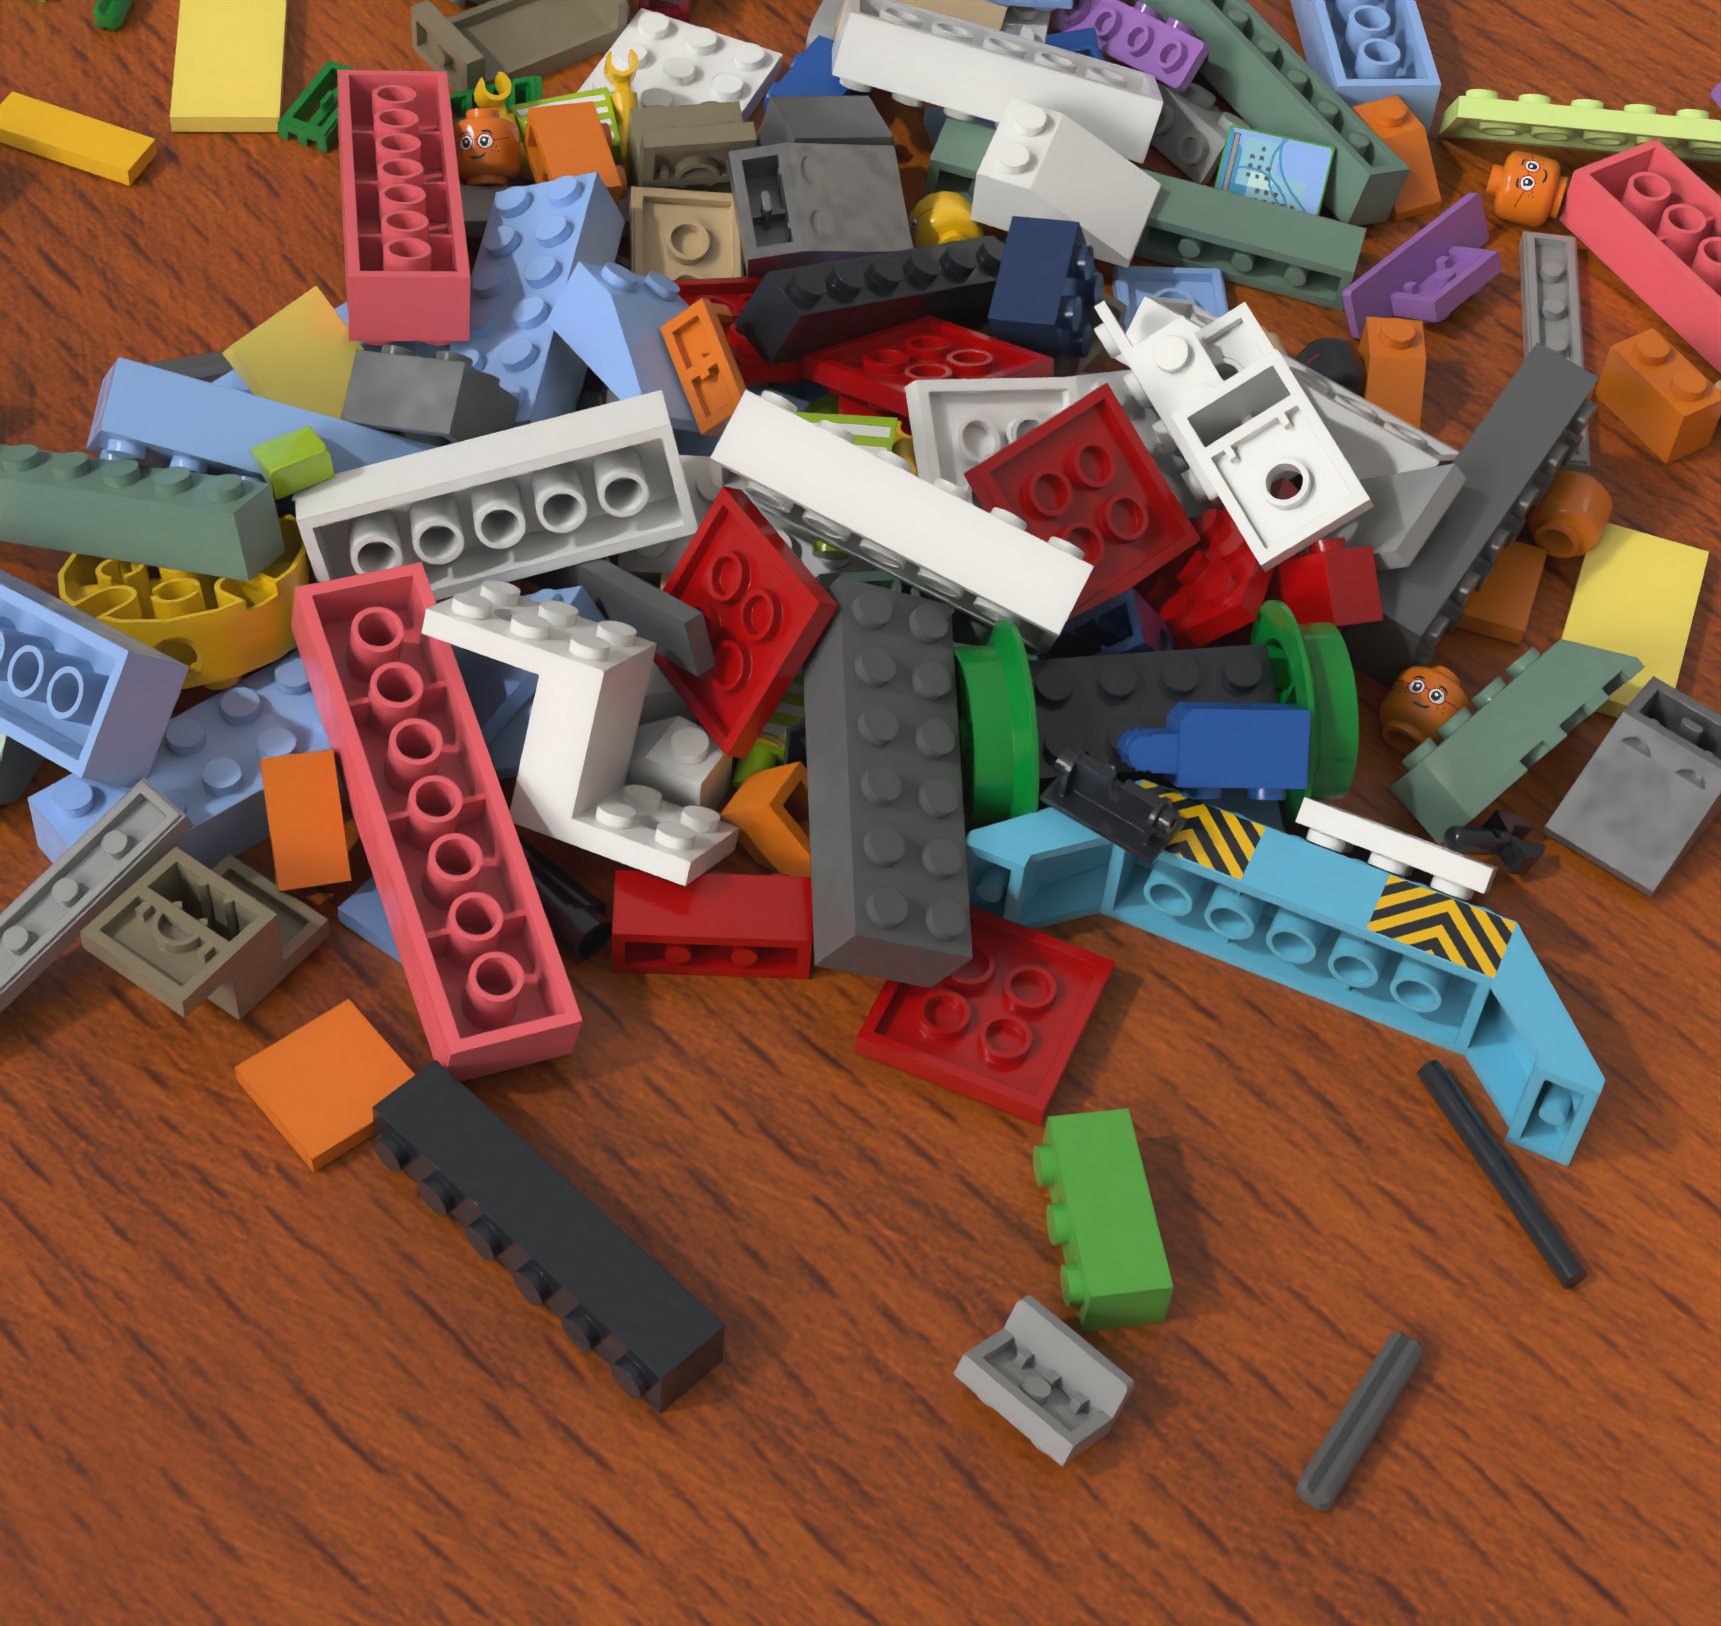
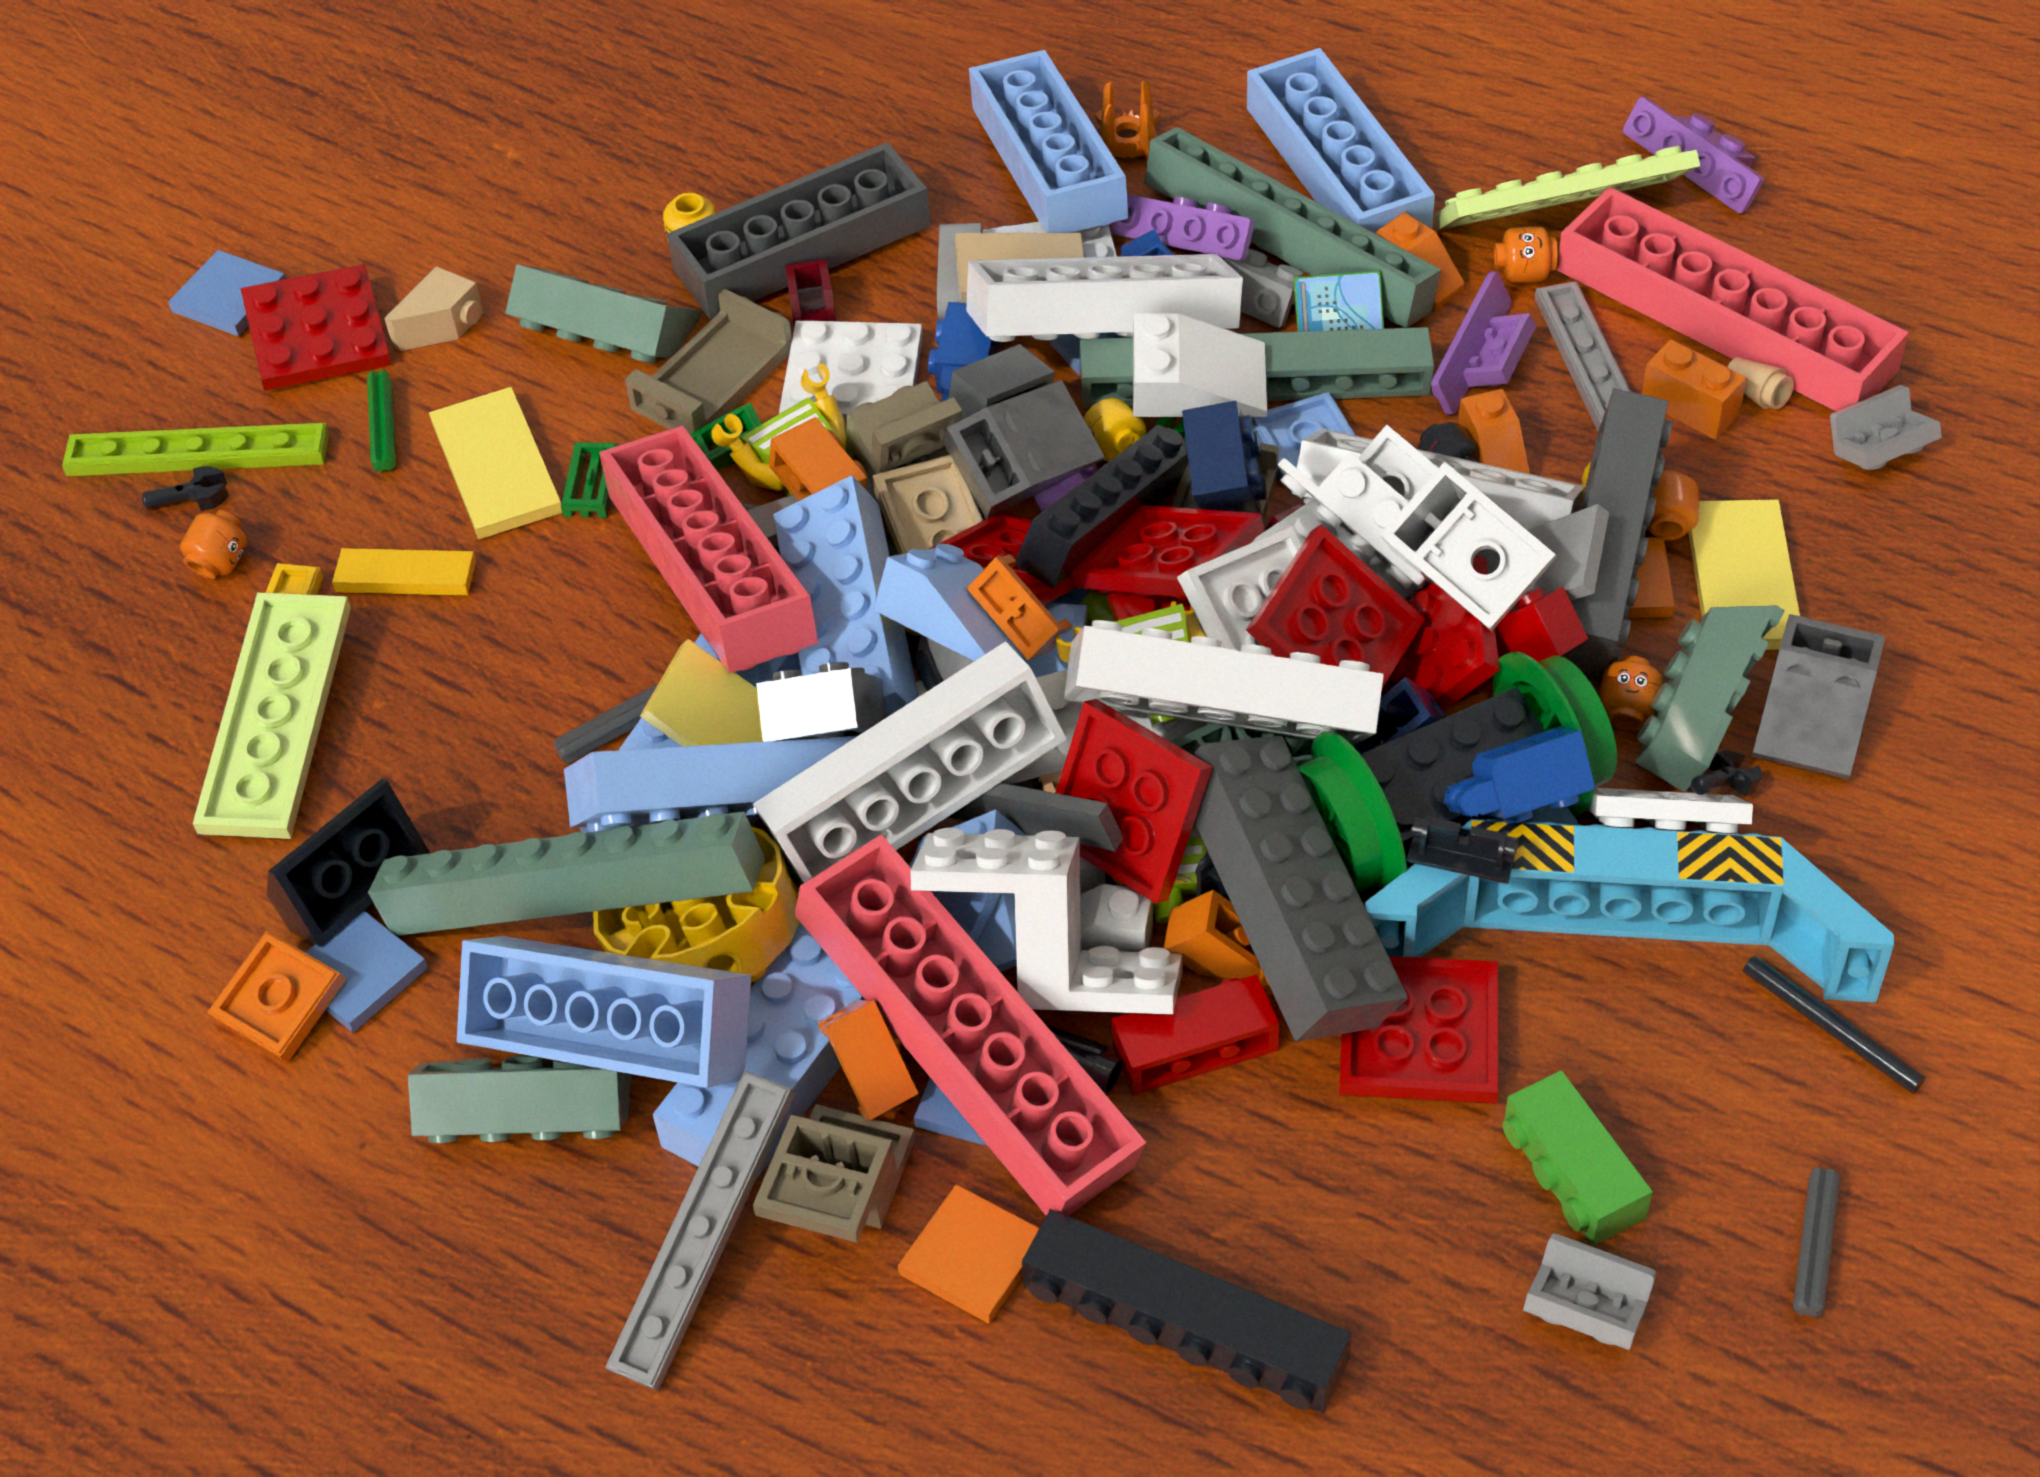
camera: 10 degrees left, 0 degrees up
(293, 462) = (748, 786): lime slope -> none
(487, 149) = (745, 476): orange head -> none

